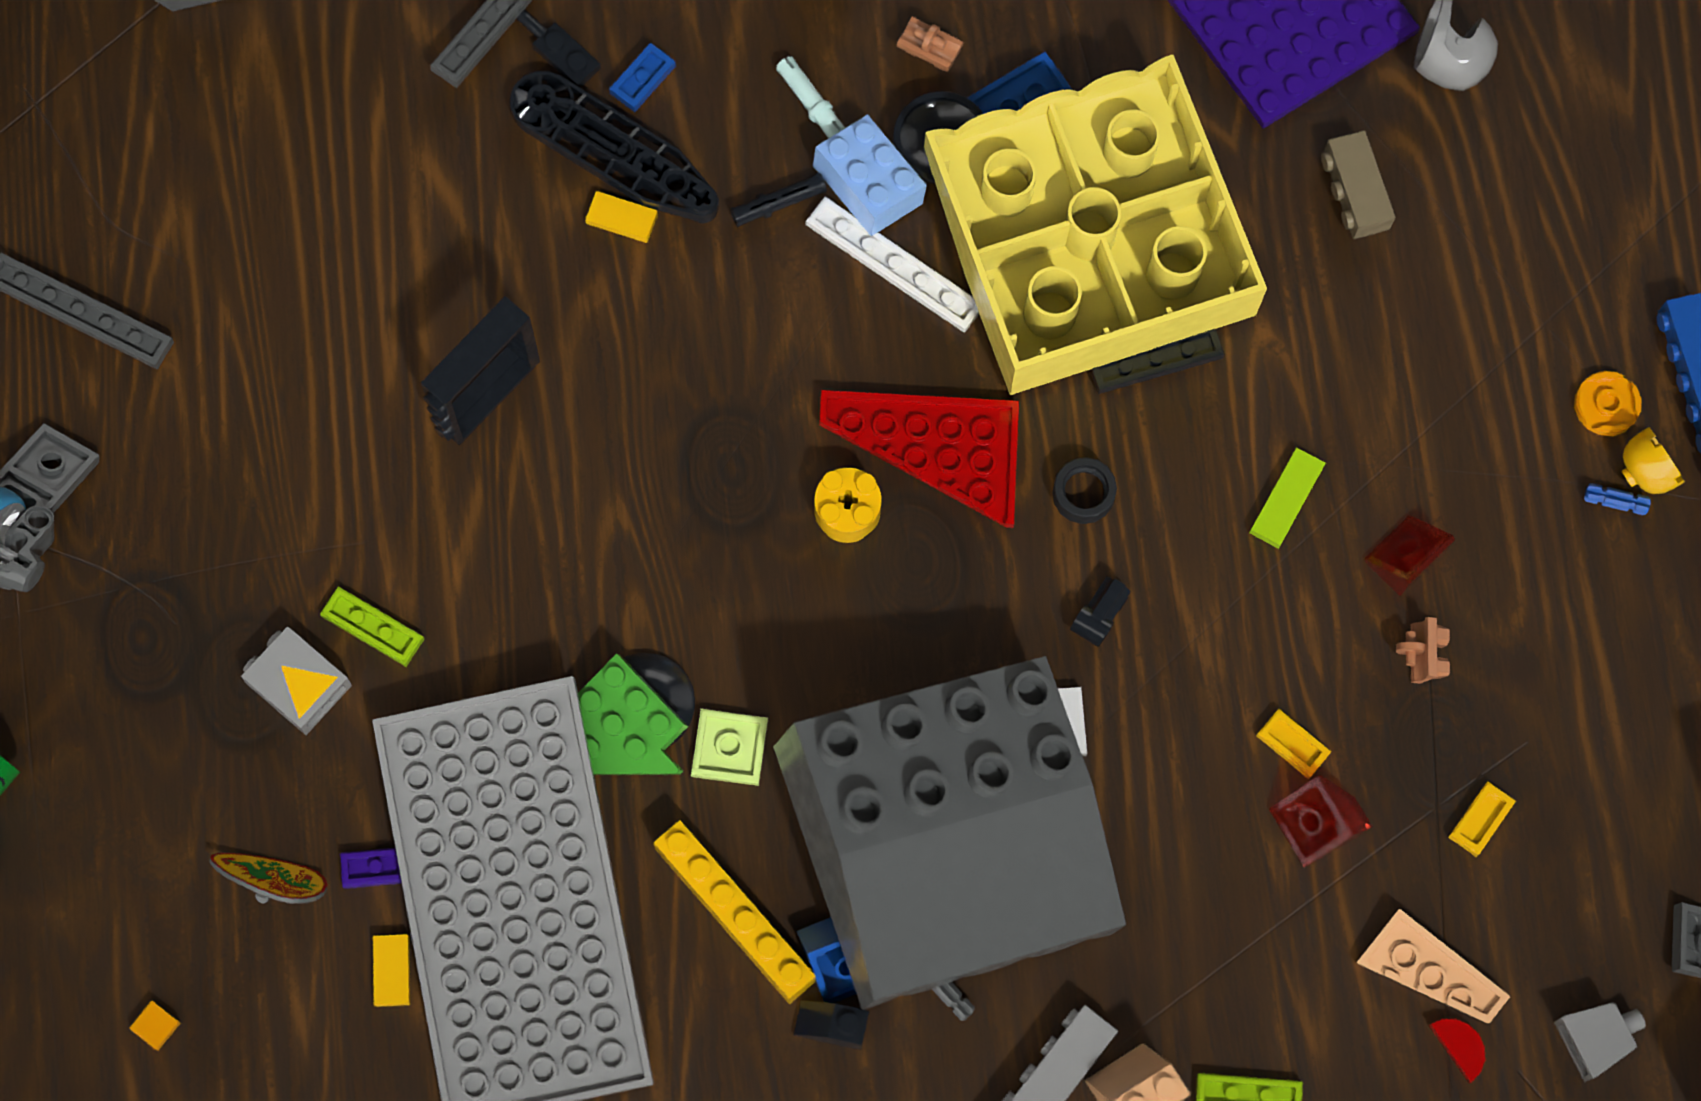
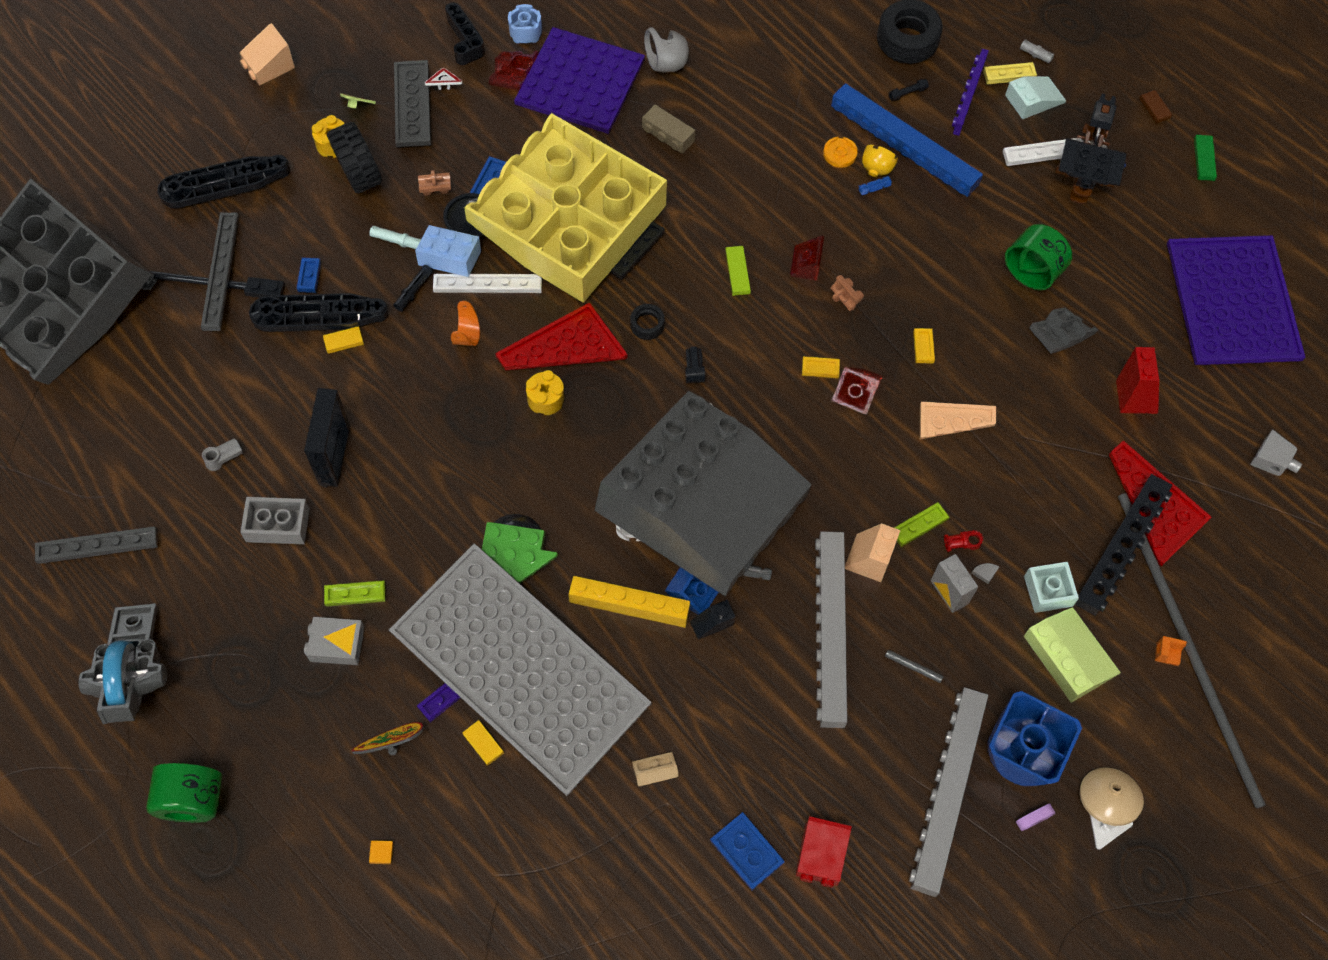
camera: 35 degrees left, 10 degrees down
(334, 443) = (275, 520): none -> light grey brick
(335, 288) = (221, 454): none -> light grey piece
(729, 747) = (570, 533): yellowish green tile -> none
(812, 322) = (468, 326): none -> orange piece
(1462, 1045) = (991, 441): red tile -> none
(1599, 1037) = (1044, 399): light grey torso -> none

